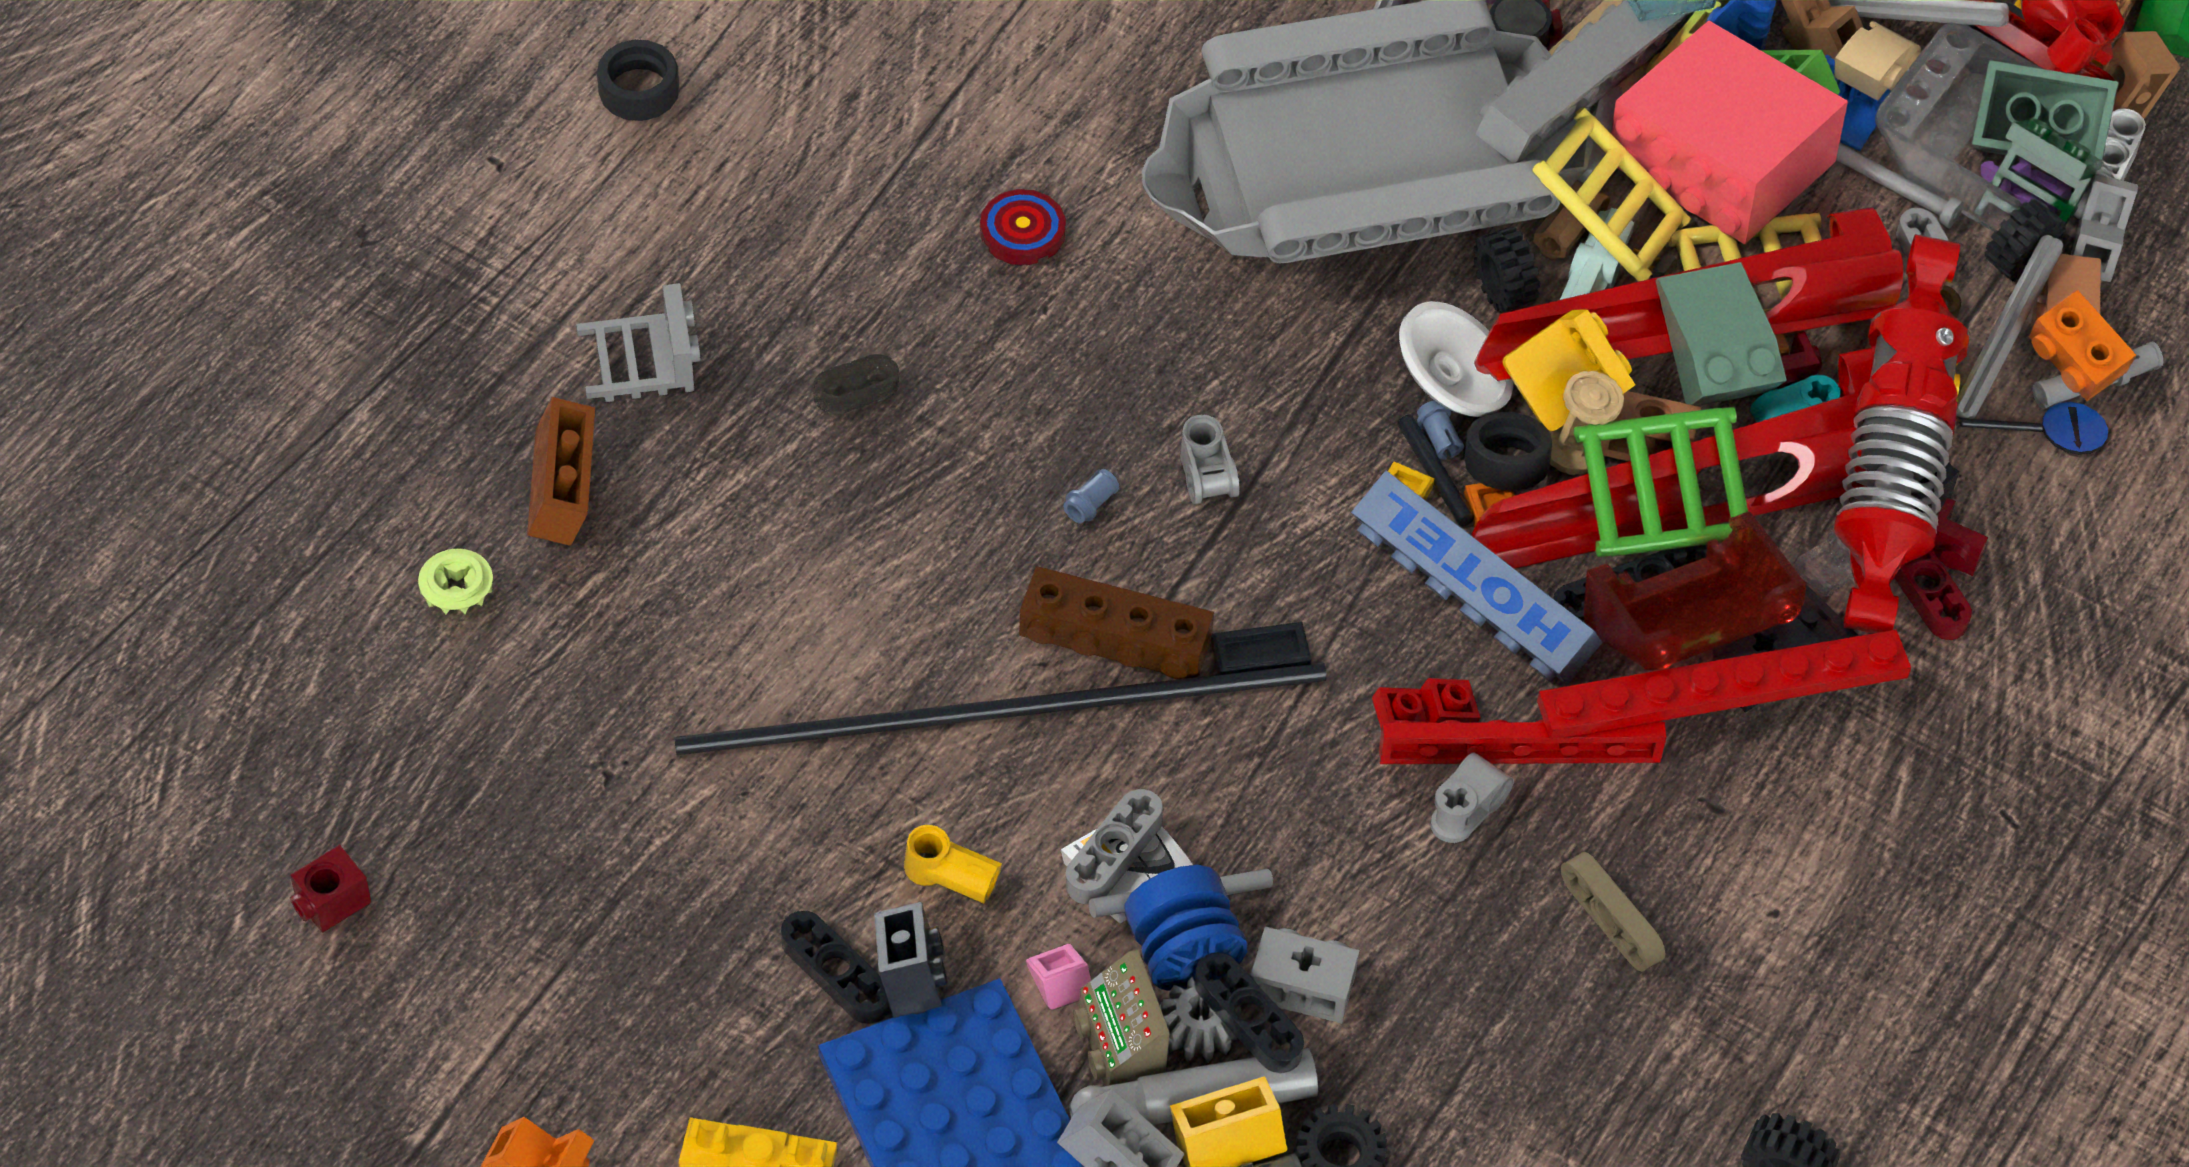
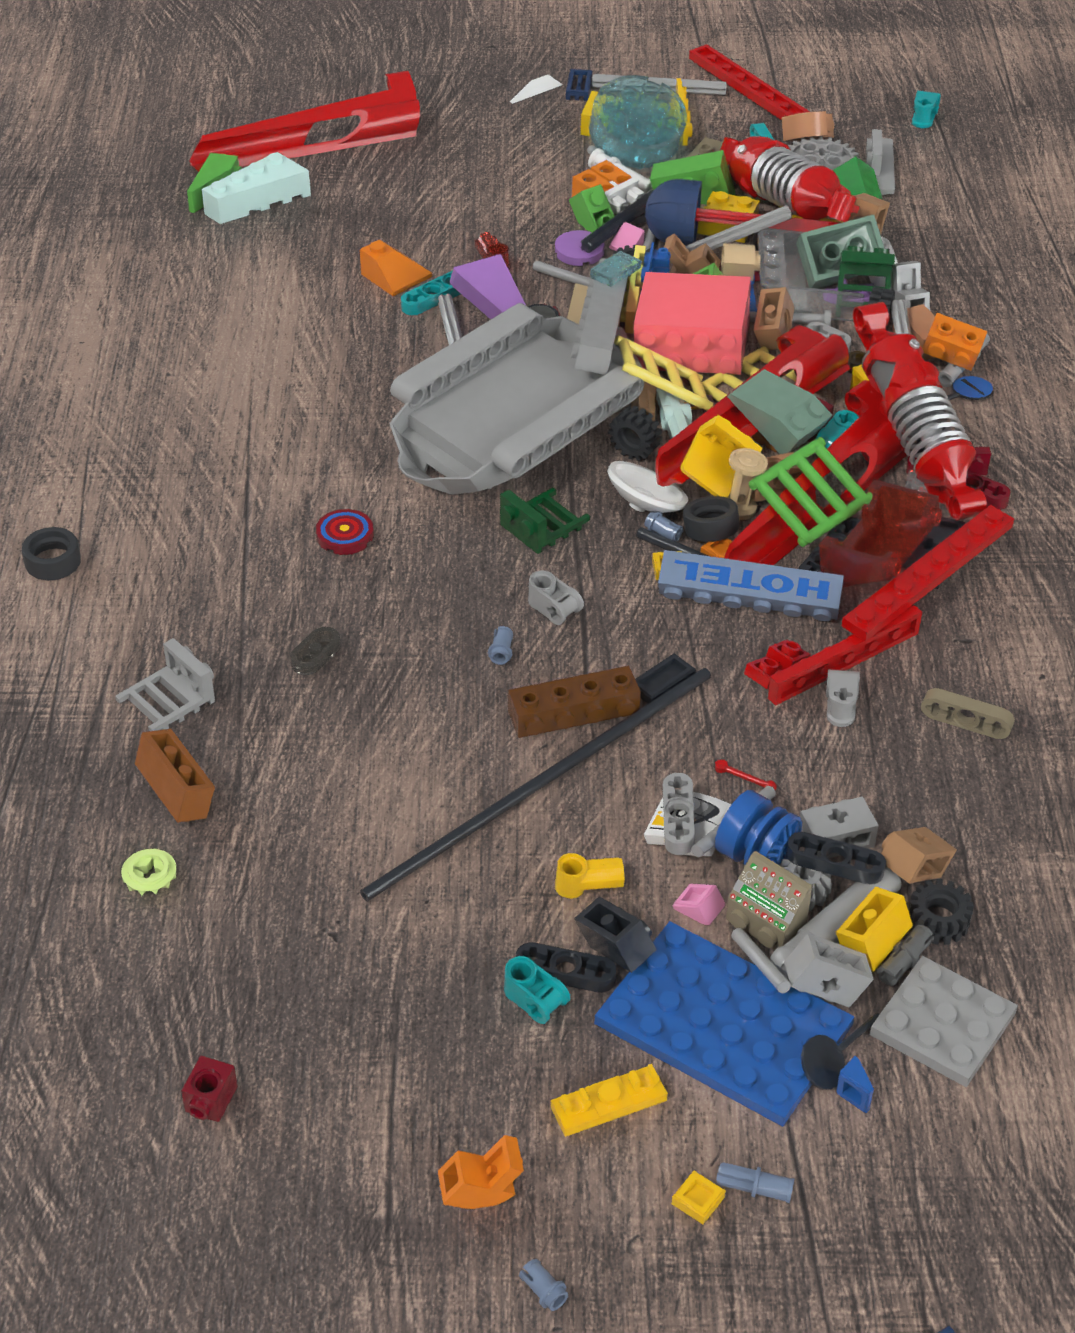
camera: 30 degrees left, 10 degrees down
(771, 979) = (537, 992): none -> teal piece
(1060, 1089) = (761, 960): none -> light grey bar
(1238, 812) = (721, 766): none -> red hinge
(1259, 338) = (530, 521): none -> dark green plate
(1361, 1064) = (917, 854): none -> medium nougat brick
(1857, 174) = (773, 316): none -> medium nougat brick

